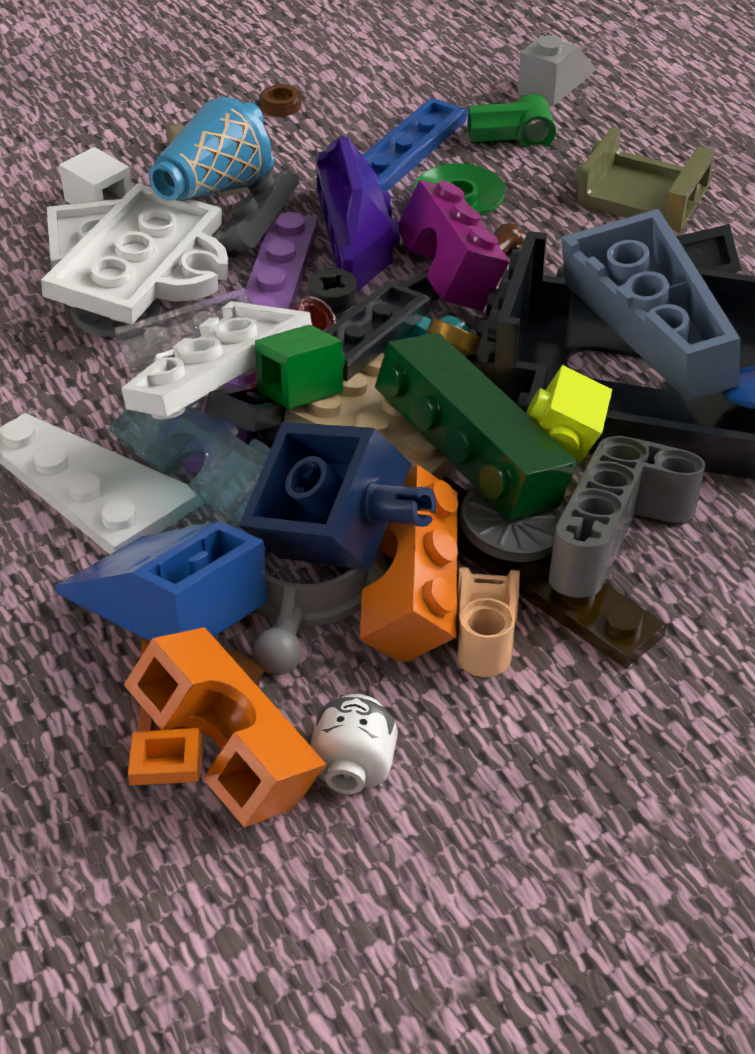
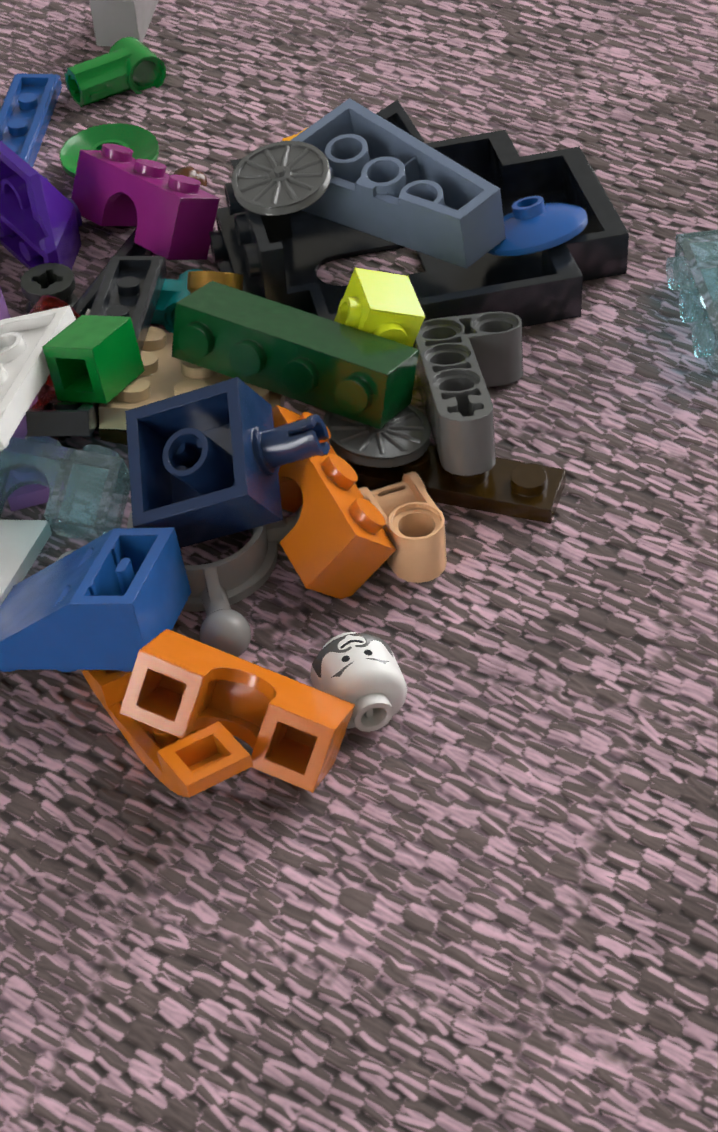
camera: 25 degrees left, 0 degrees up
(554, 261) = (281, 178): none -> dark grey wheel
(636, 184) = (278, 94): olive panel -> none

